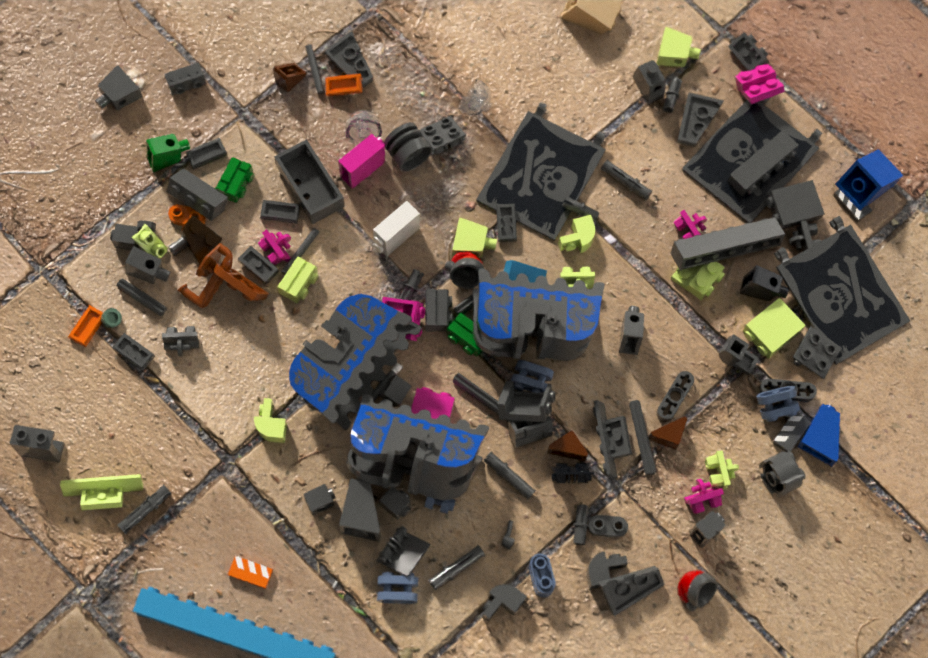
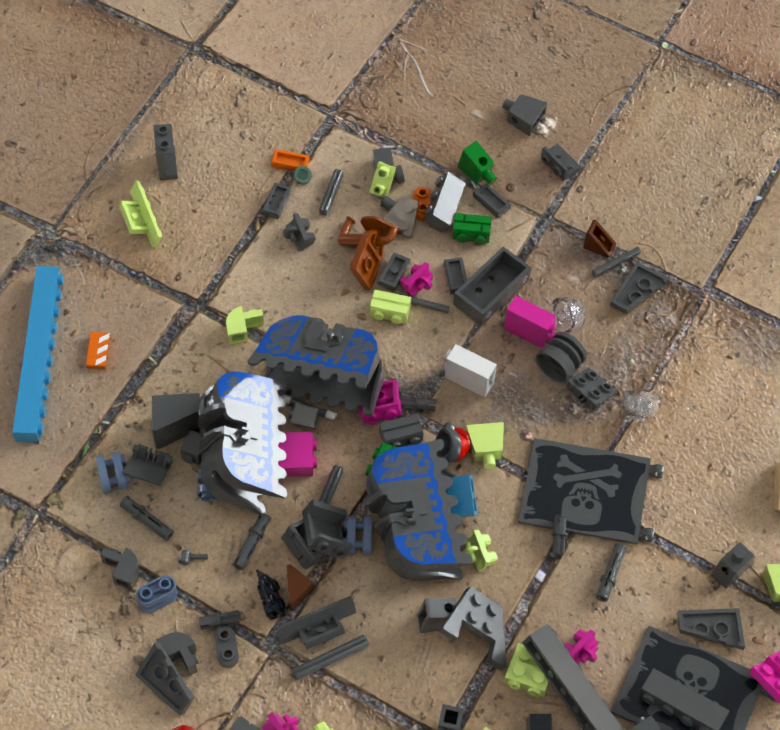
camera: 75 degrees right, 10 degrees down
(145, 266) = (358, 182): dark grey torso -> none
(152, 502) = (139, 255): dark grey pin -> none
(319, 499) = (179, 382): dark grey brick -> none
(343, 85) = (607, 288): orange tile -> none
(506, 222) = (518, 470): dark grey plate -> none
(583, 235) = (530, 545): yellowish green brick -> none
(646, 297) = (483, 618): none -> wing
(670, 434) = (341, 682): reddish brown slope -> none
(672, 95) = (730, 594): dark grey axle -> none
(673, 388) = (402, 677): dark grey beam -> none

